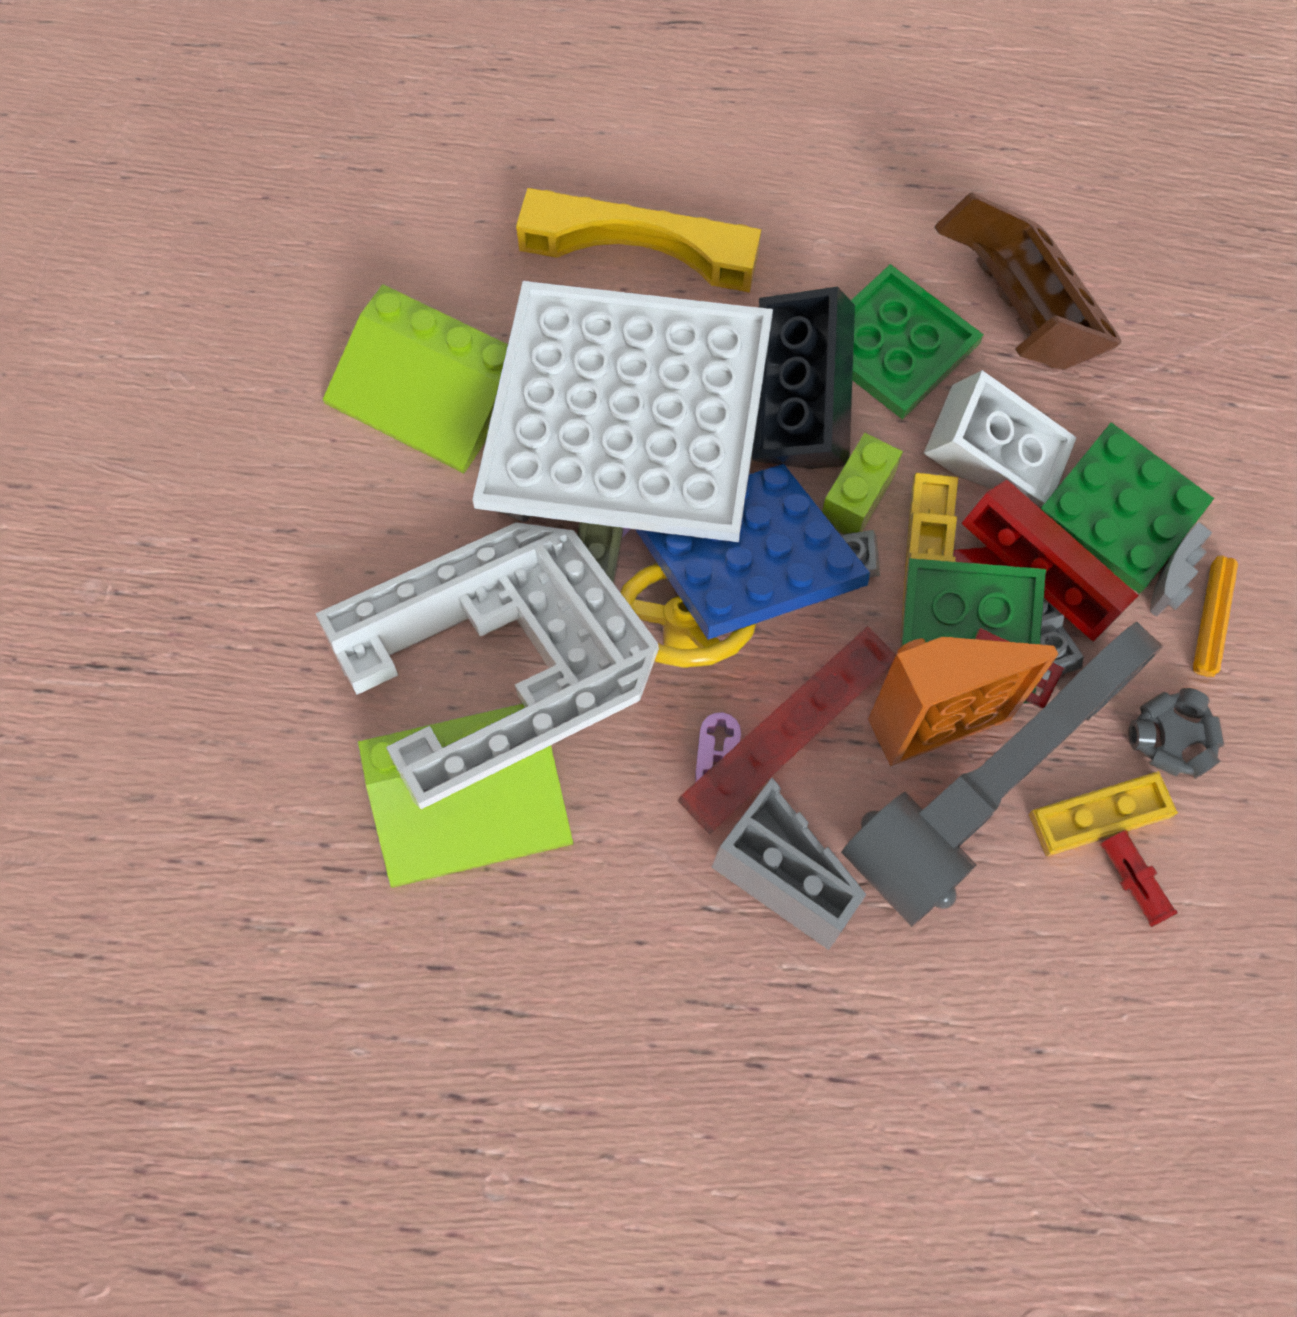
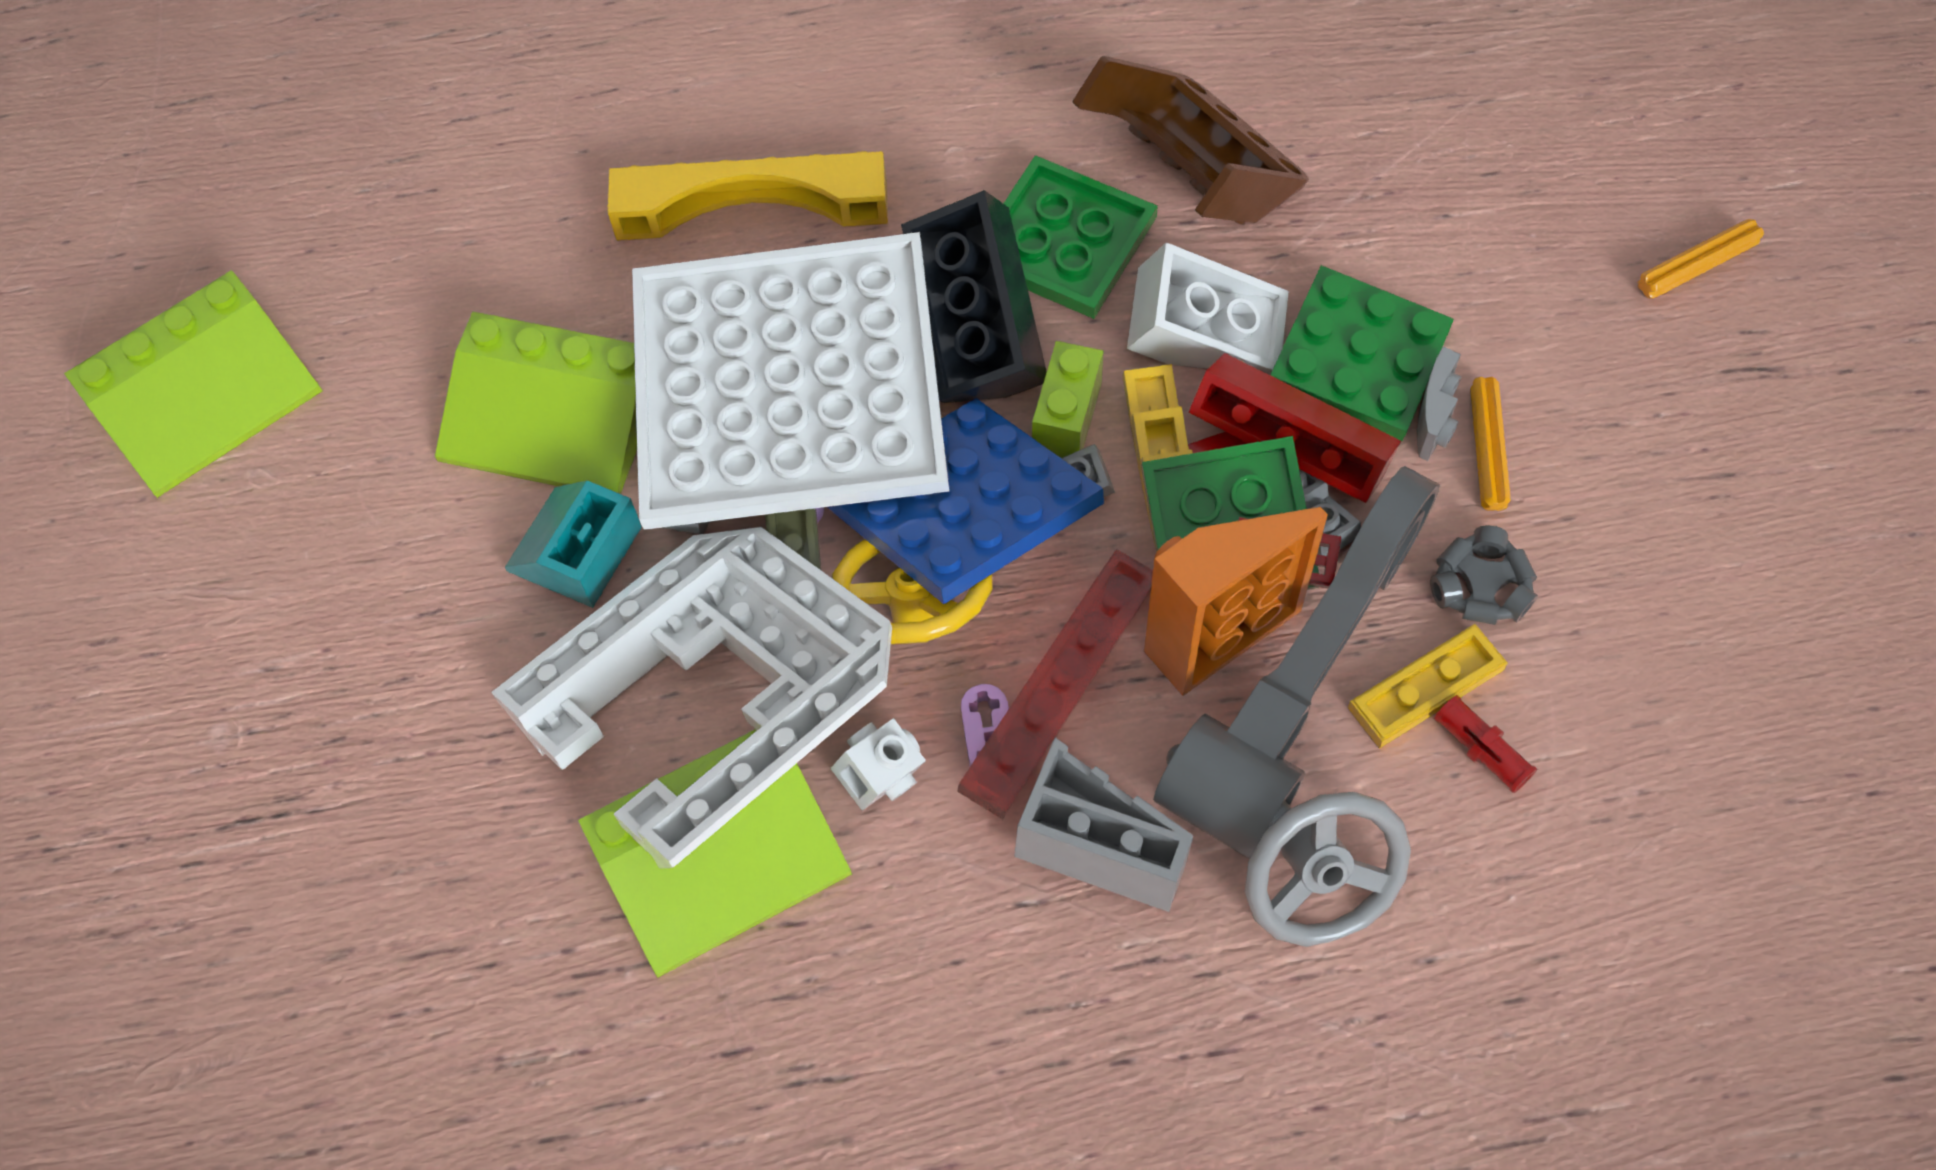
camera: 10 degrees left, 5 degrees down
(142, 287) = (193, 383): none -> lime slope
(419, 502) = (577, 541): none -> teal slope
(619, 758) = (879, 763): none -> white brick
(972, 948) = (1324, 865): none -> light grey piece

